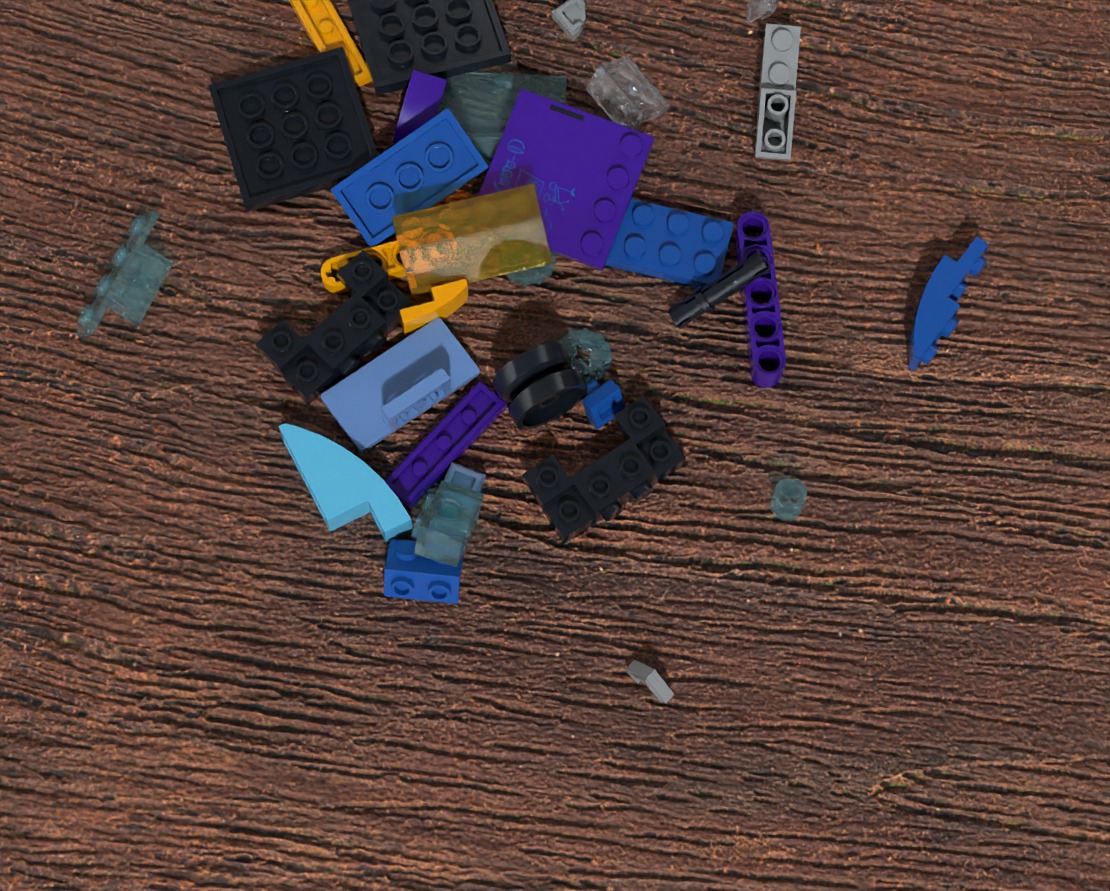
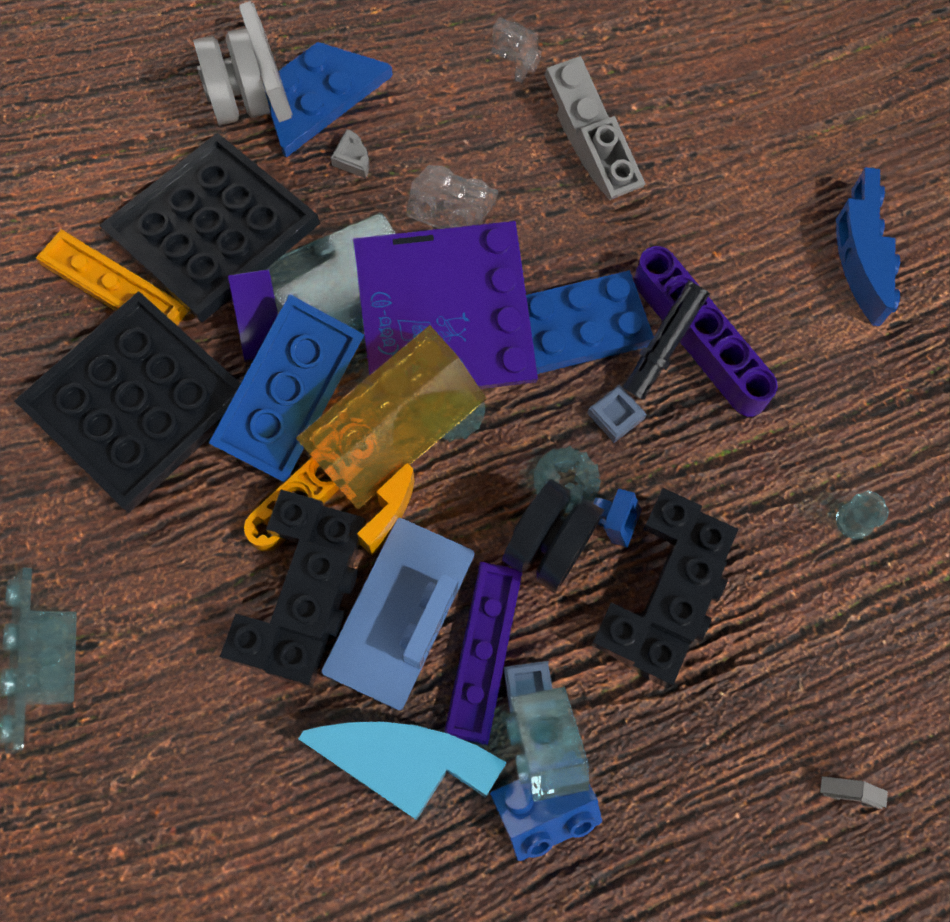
camera: 30 degrees left, 0 degrees up
(653, 328) = (616, 413): none -> sand blue tile

